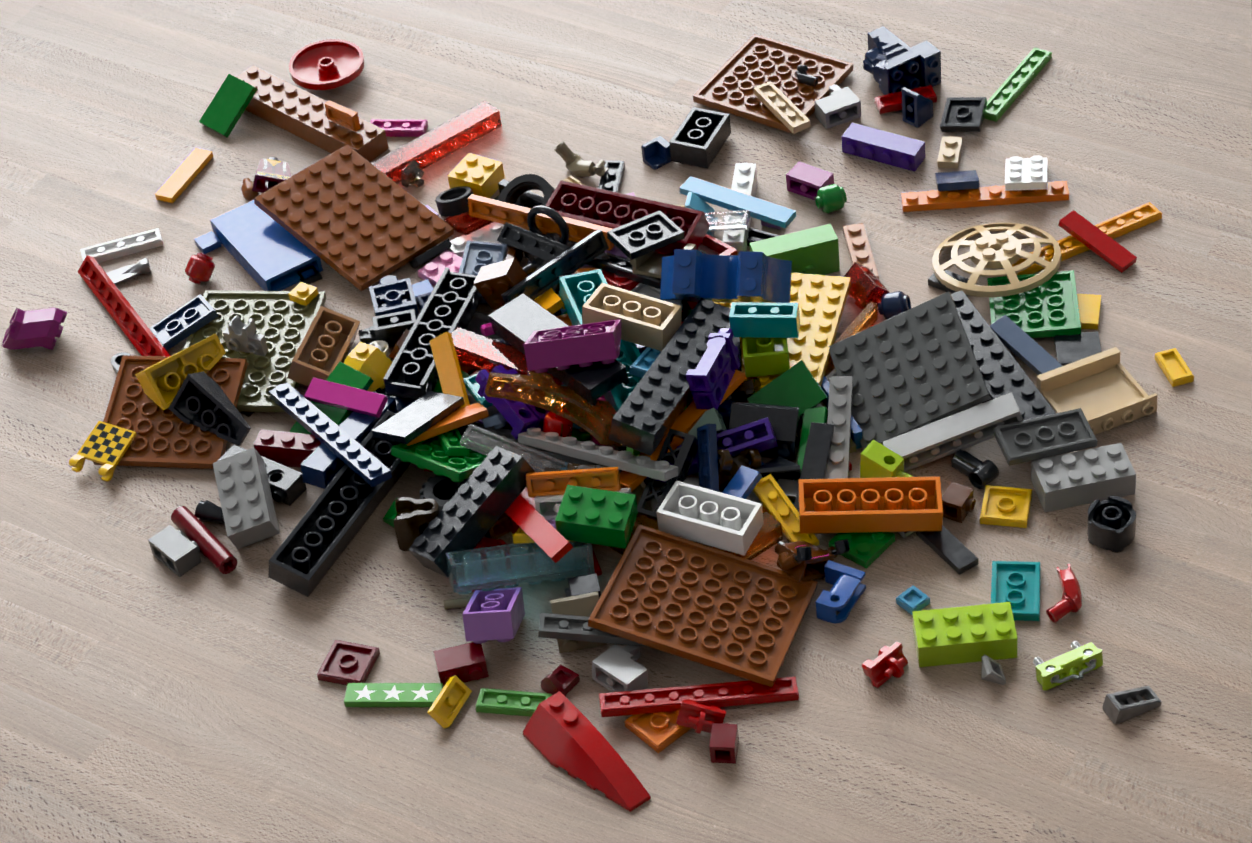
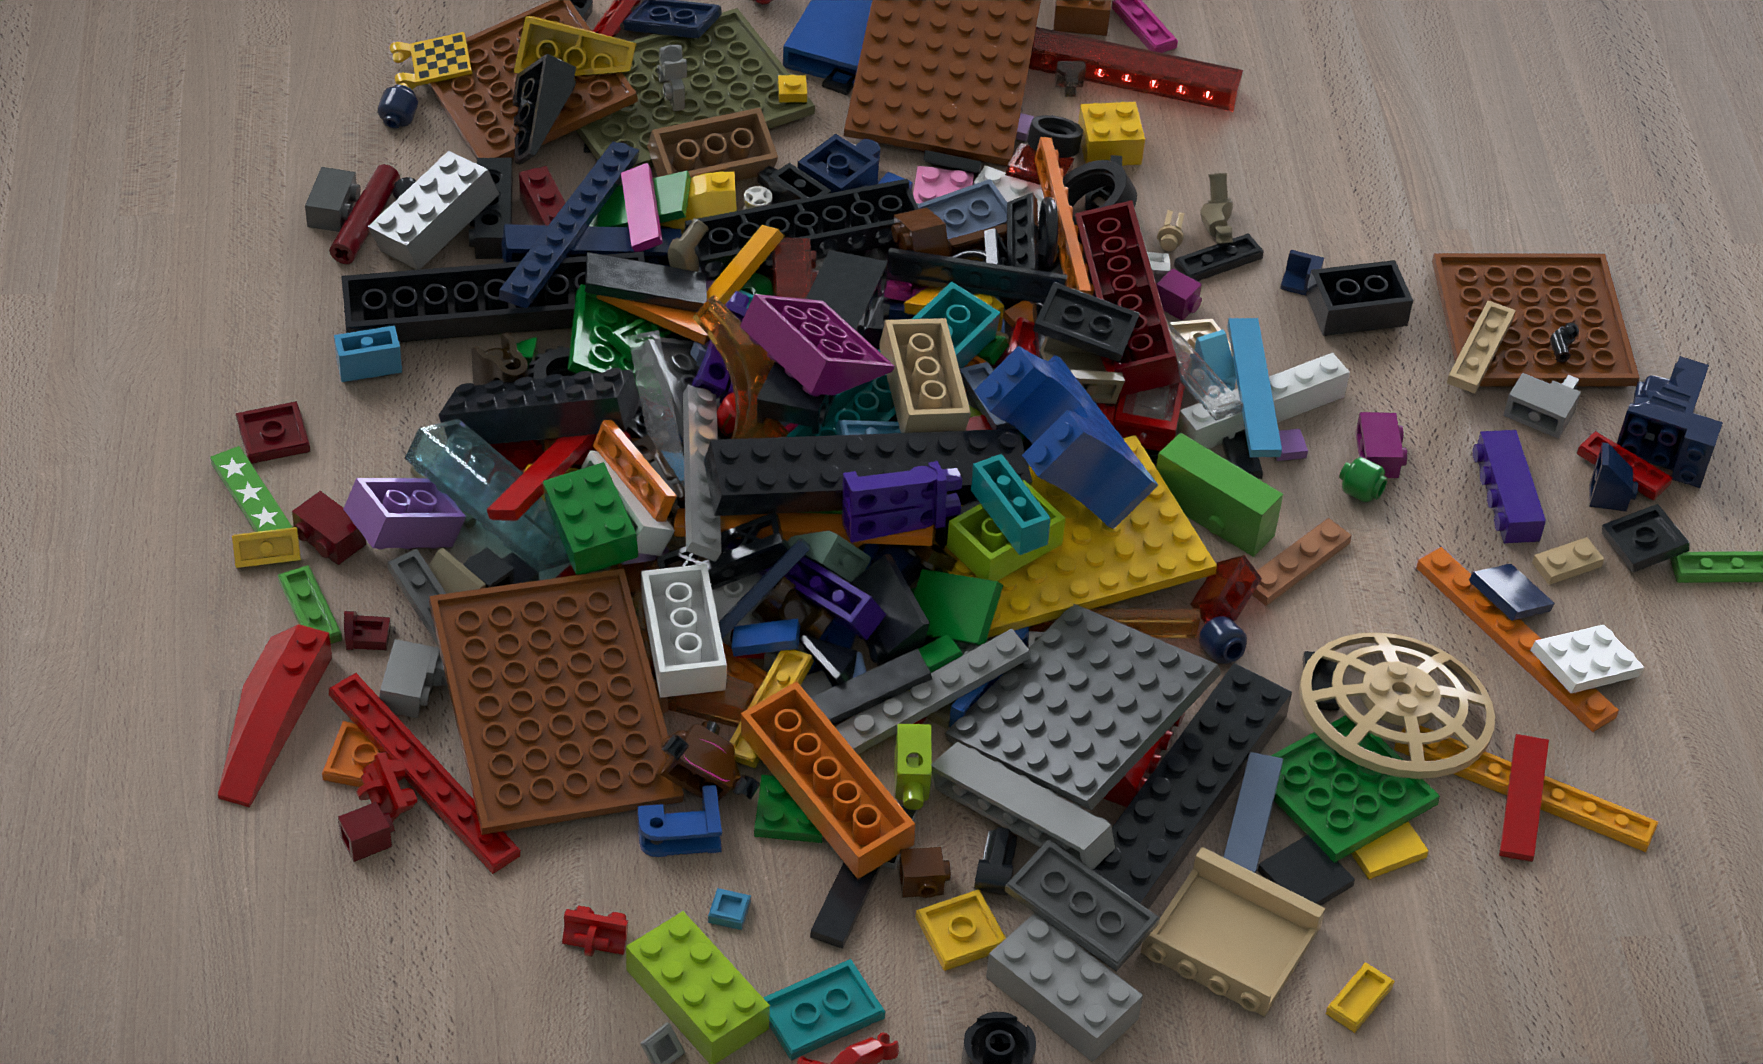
camera: 45 degrees right, 5 degrees up
(124, 484) = (397, 106): none -> dark blue head
(334, 583) = (368, 353): none -> dark azure brick
(407, 389) = (682, 252): none -> dark tan arm

